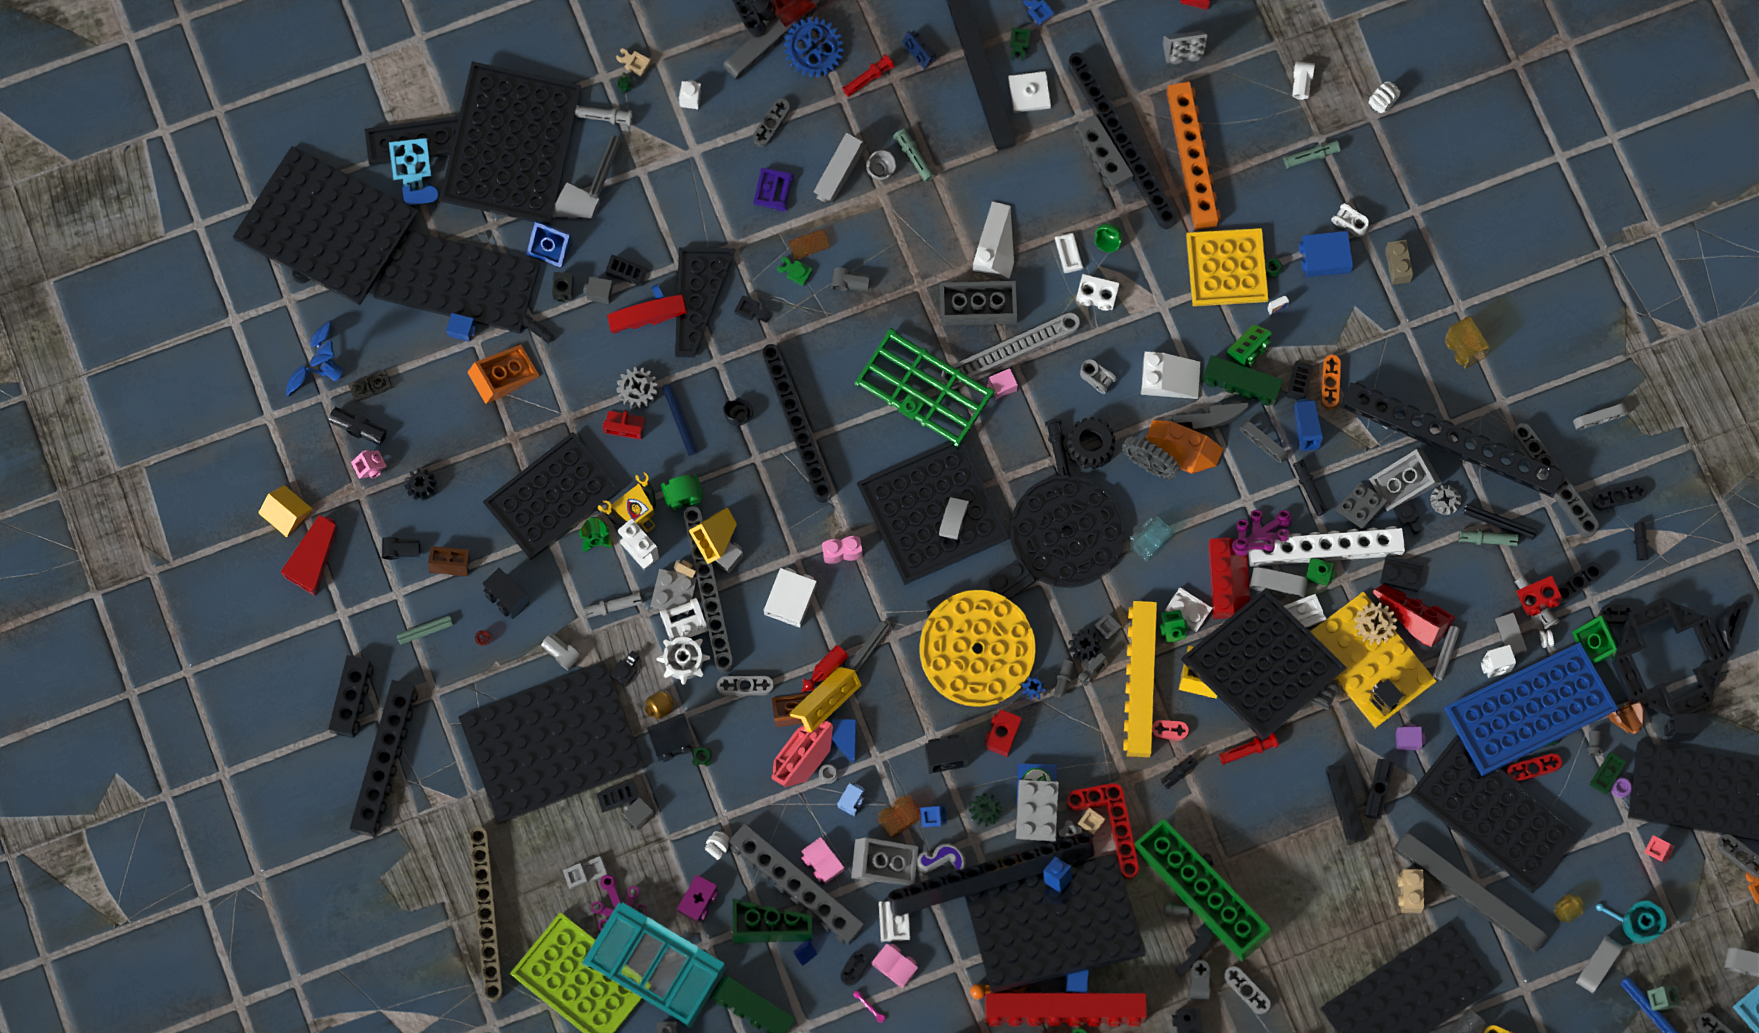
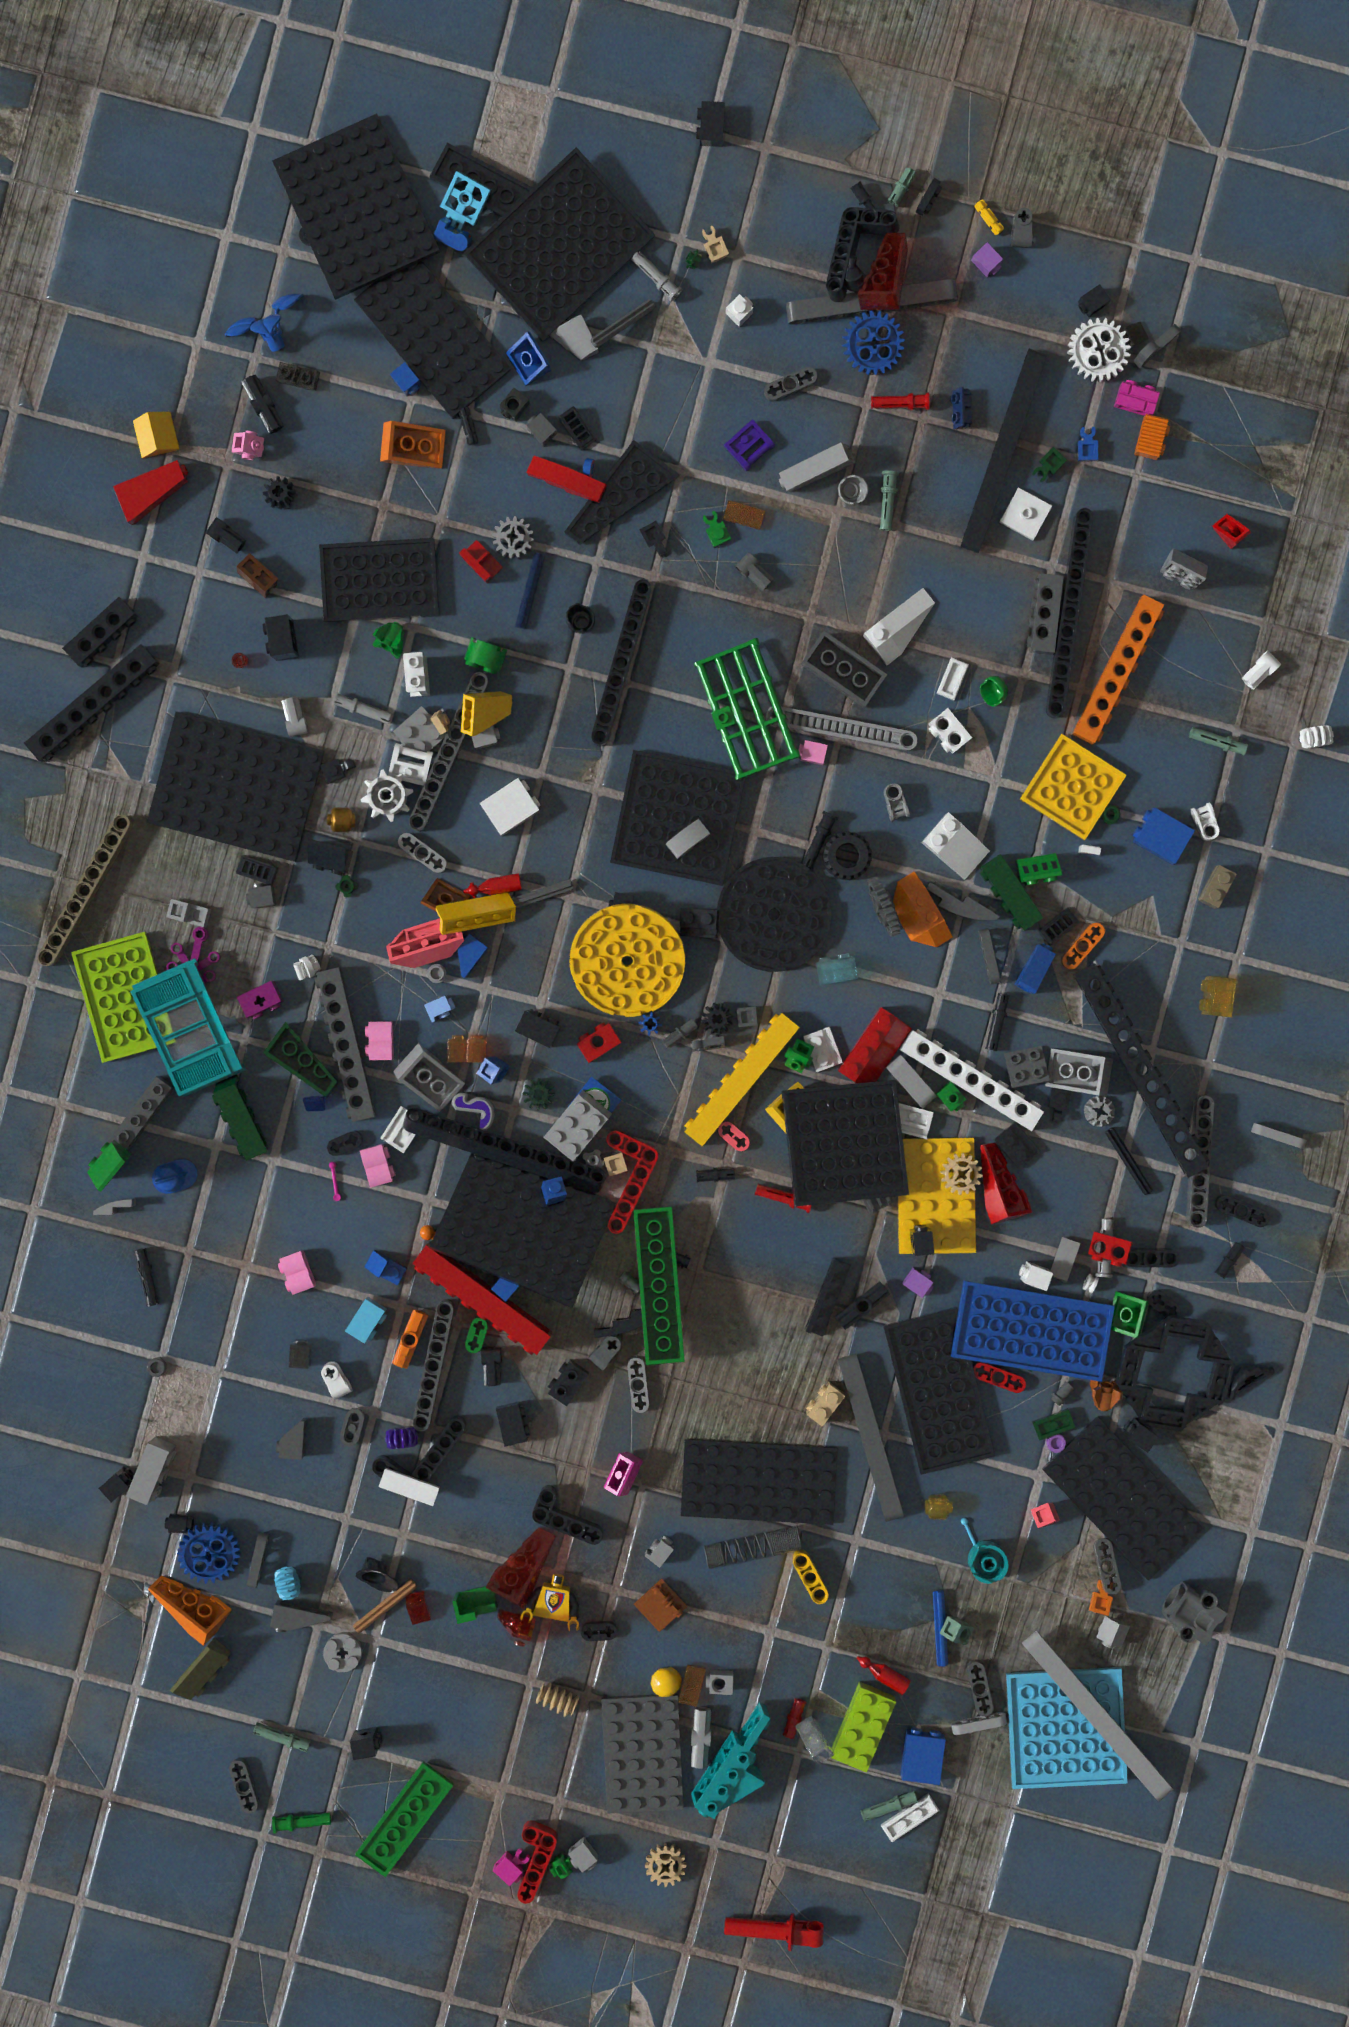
camera: 35 degrees right, 15 degrees up
(424, 629) = (199, 618): sand green axle -> none
(635, 505) = (437, 639): torso -> none
(837, 550) = (584, 799): bright pink brick -> none
(1243, 545) = (926, 1032): magenta plant -> none
(1446, 653) = (1001, 1235): light grey axle -> none
(1488, 537) = (1103, 1163): sand green pin -> none
(1599, 964) = (928, 1566): light grey beam -> none

